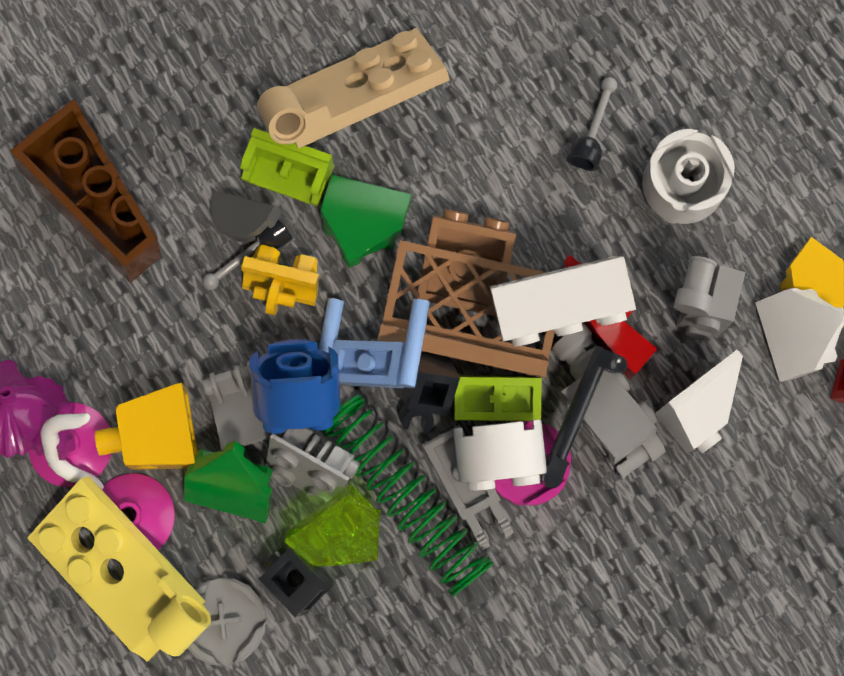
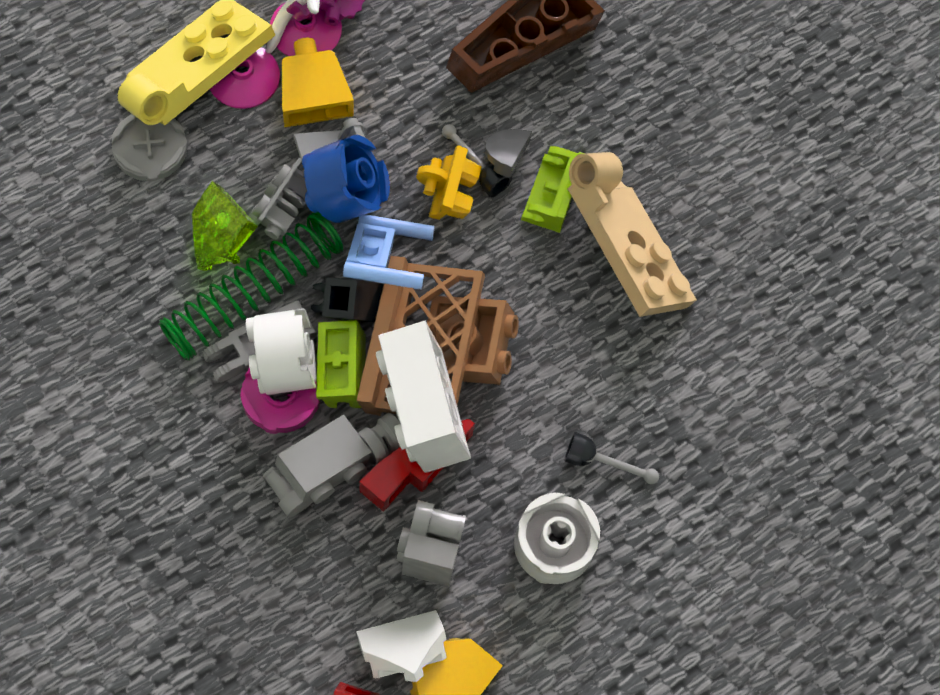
camera: 80 degrees right, 10 degrees down
(229, 483) = (266, 143): green slope -> none
(295, 598) = (176, 196): black brick -> none
(362, 217) = (511, 253): green slope -> none
(556, 463) = (275, 405): black hinge -> none
(703, 406) = (329, 544): white slope -> none

